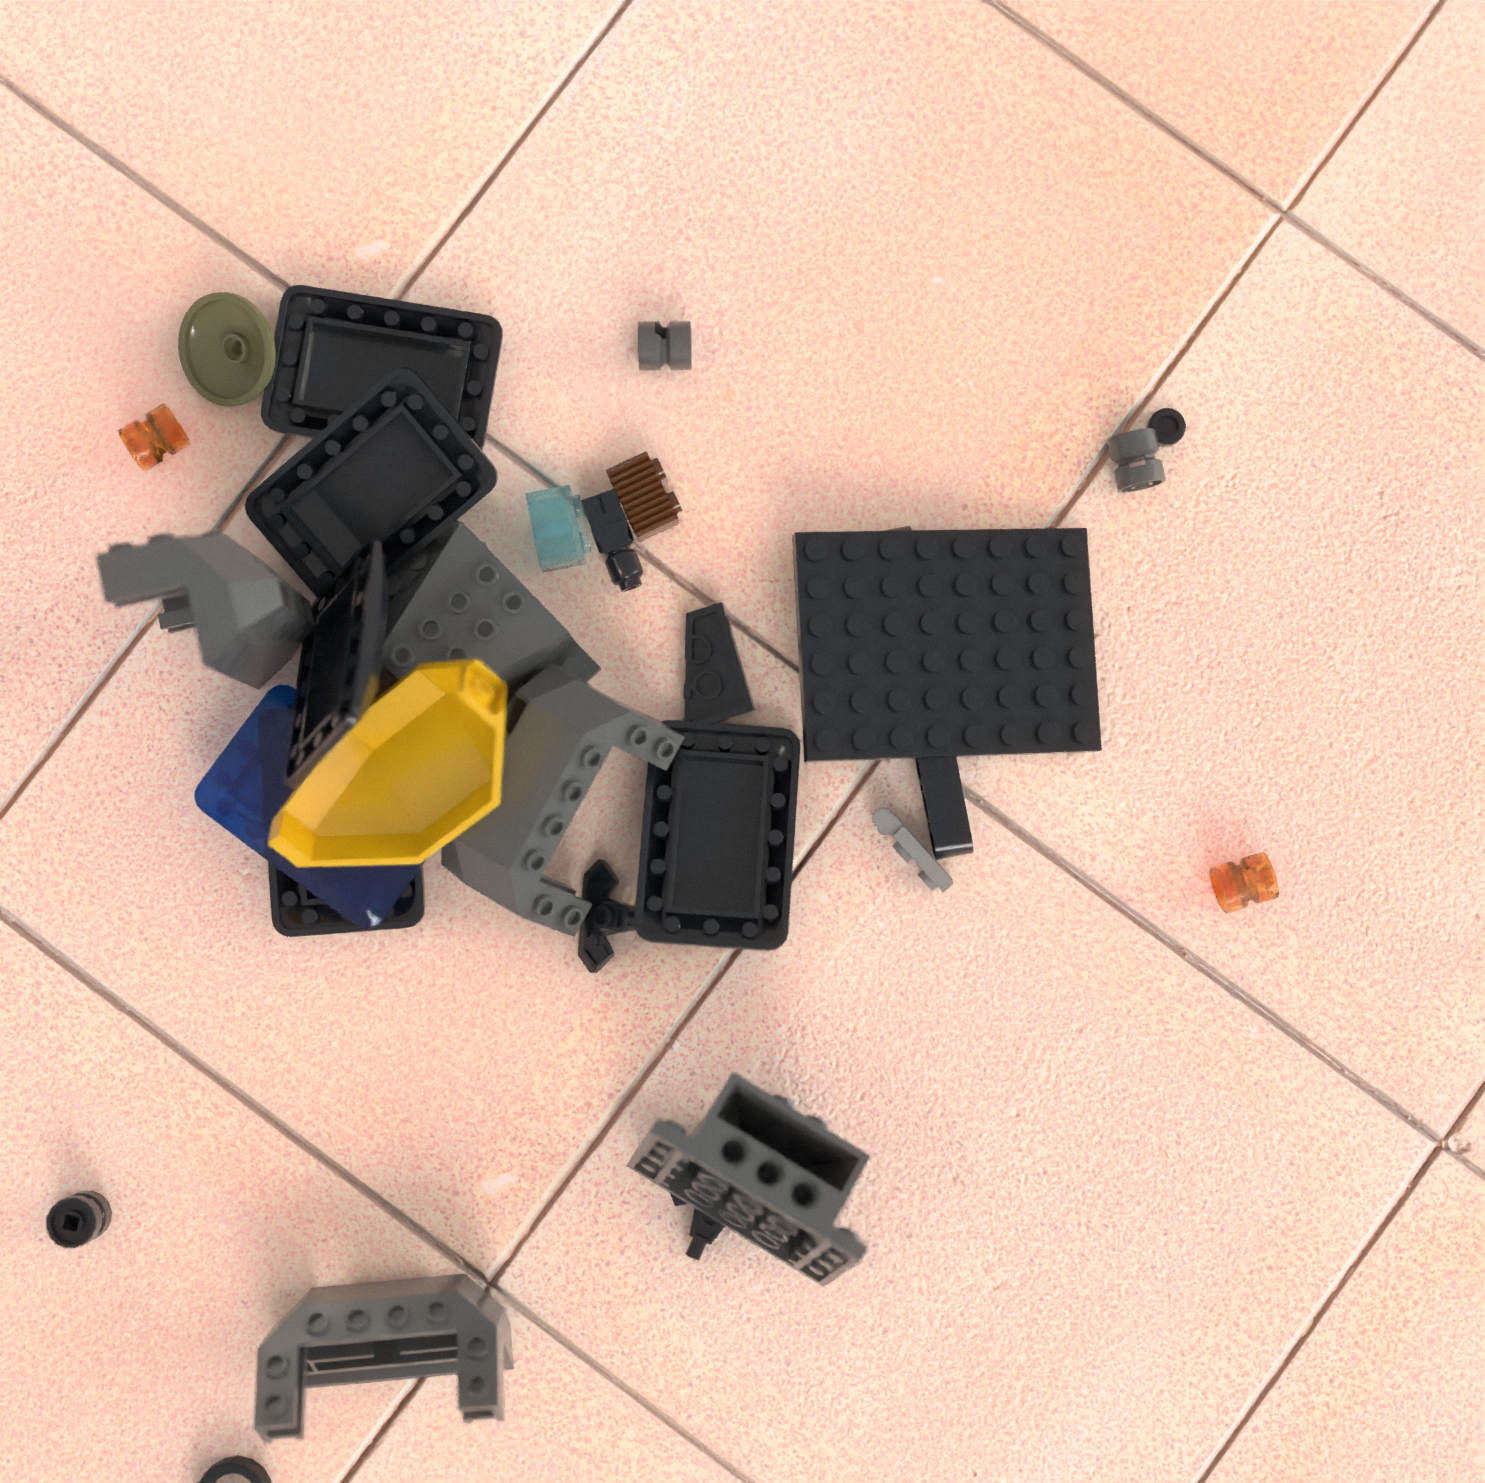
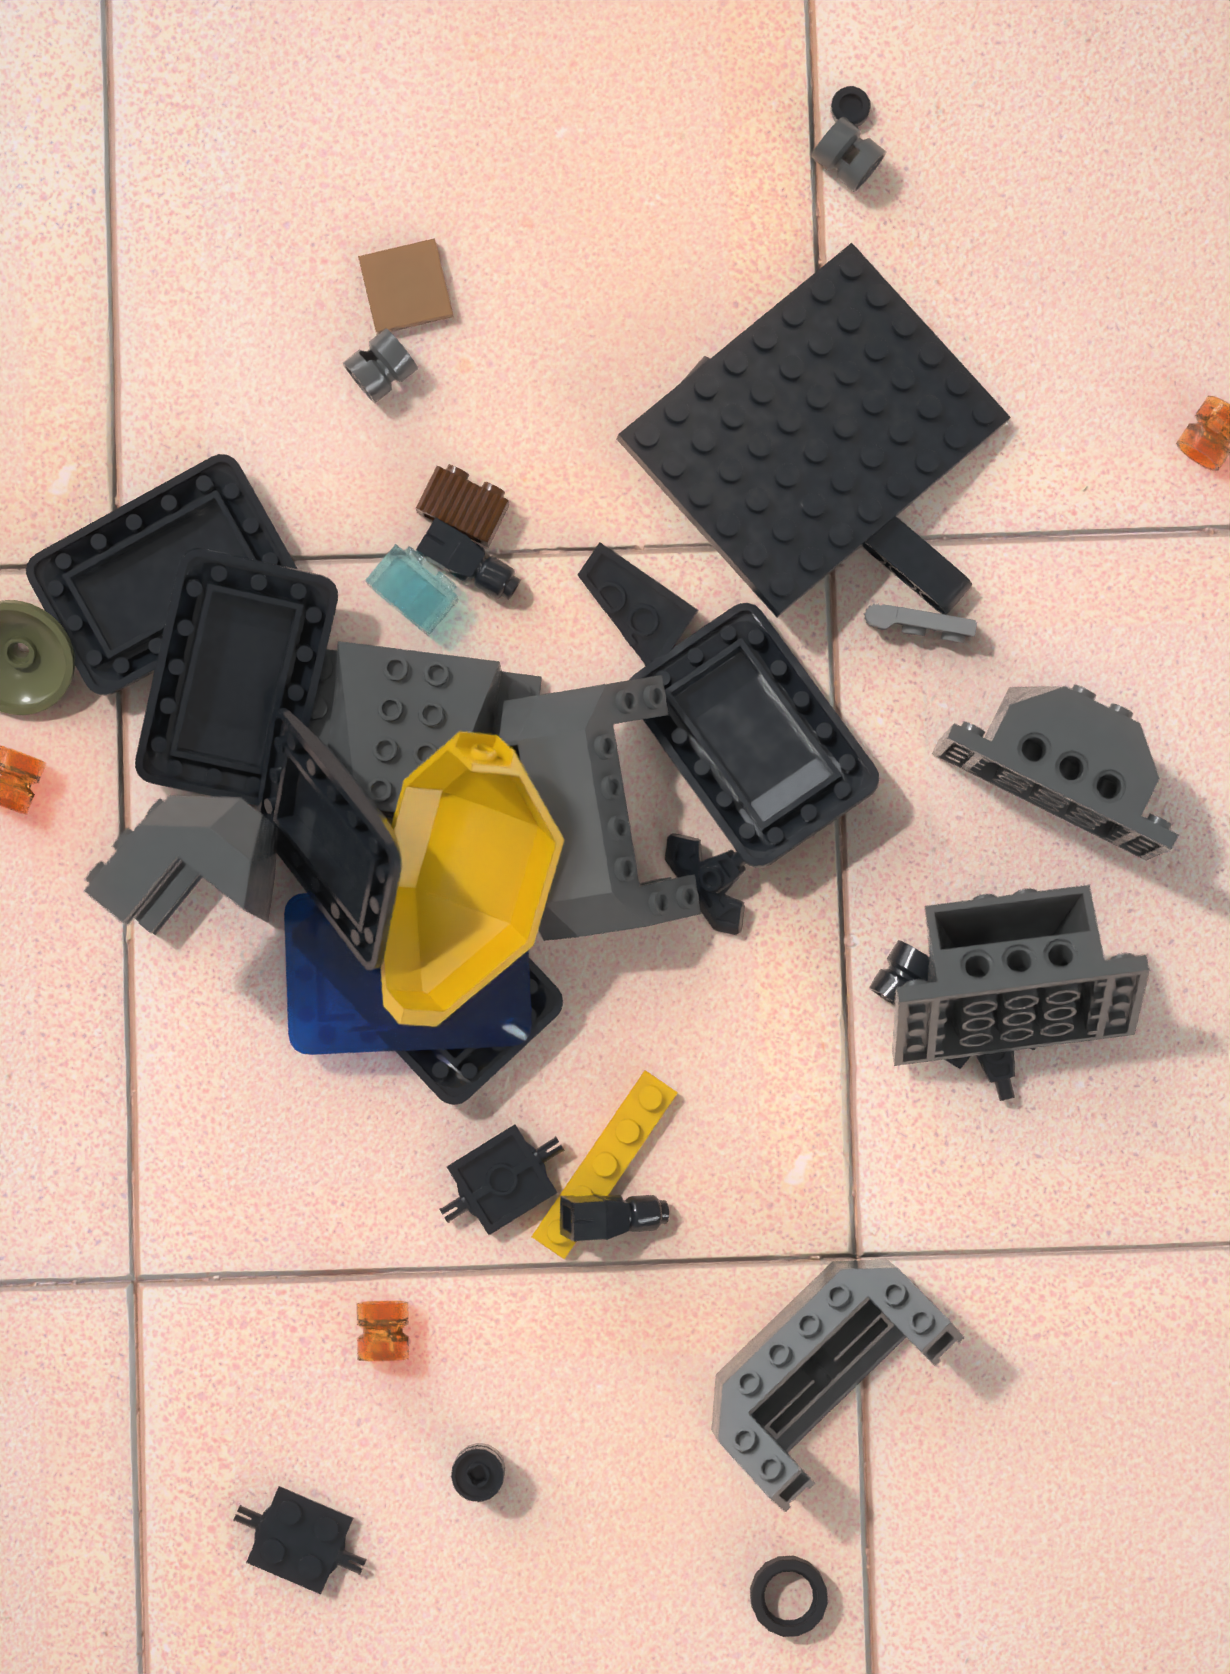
camera: 40 degrees left, 0 degrees up
(92, 1060) = (382, 1330): none -> clear orange wheel
(272, 1015) = (501, 1179): none -> black plate
(325, 1107) = (610, 1216): none -> black piece
(357, 1064) = (610, 1154): none -> yellow plate
(688, 1103) = (904, 966): none -> black wheel
(732, 303) = (405, 286): none -> medium nougat tile
(938, 1044) = (1070, 761): none -> dark grey wedge

